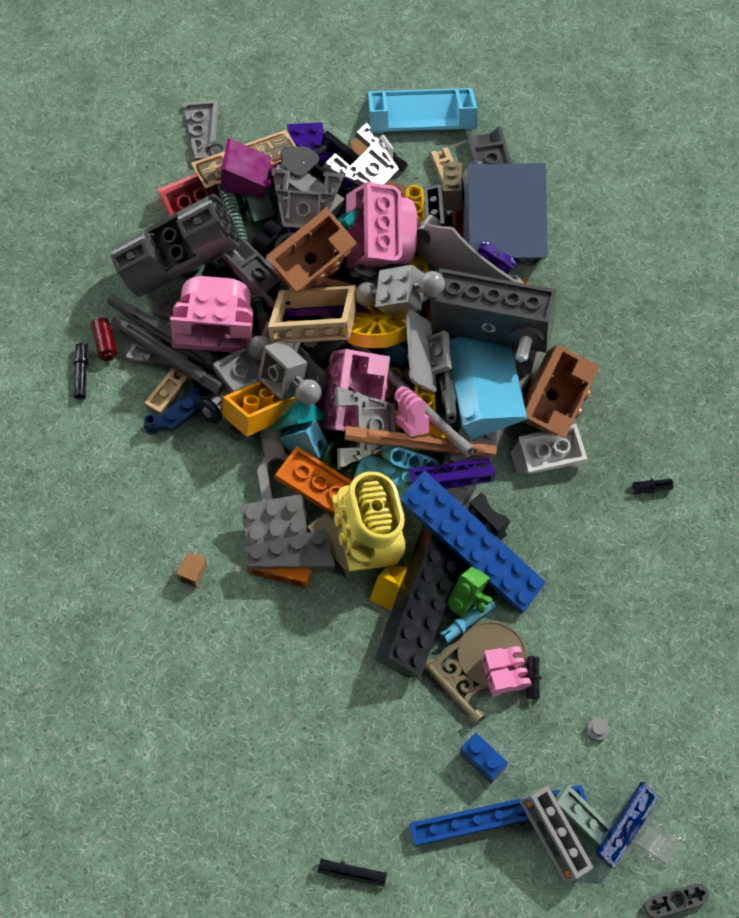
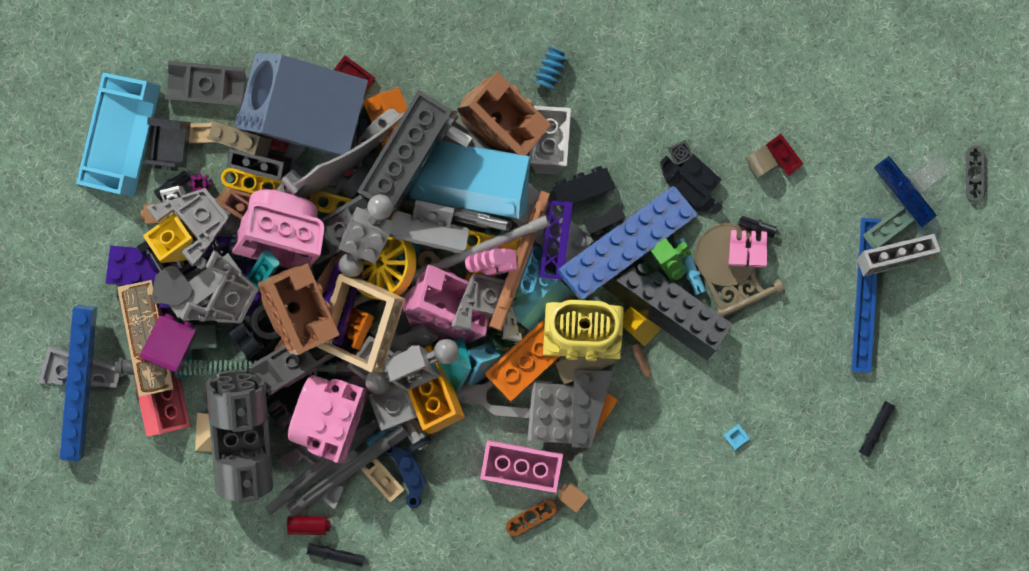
camera: 70 degrees left, 25 degrees up
(147, 531) = (529, 525): none -> dark orange beam
(190, 125) = (78, 382): none -> blue brick
(211, 510) = (521, 466): none -> bright pink brick
(300, 720) = (736, 437): none -> medium azure tile
(342, 145) = (169, 239): none -> yellow slope
(358, 597) = (640, 358): none -> medium nougat animal
(401, 176) = (205, 182): none -> magenta gear
(428, 145) = (168, 143): none -> black panel
(483, 758) = (816, 292): blue brick -> none
(503, 261) = (362, 126): dark purple hinge -> none
(513, 496) = (584, 186): none -> black brick
(546, 272) = (349, 67): none -> dark red plate
(556, 599) = (693, 181): none -> black plate
(581, 580) = (680, 152): none -> tile
(598, 729) = (818, 186): light grey plate -> none
(603, 660) = (761, 161): none -> dark tan piece
(618, 434) = (551, 68): none -> dark azure piece
(618, 683) = (784, 154): none -> dark red plate
(652, 485) = (610, 54): black axle -> none

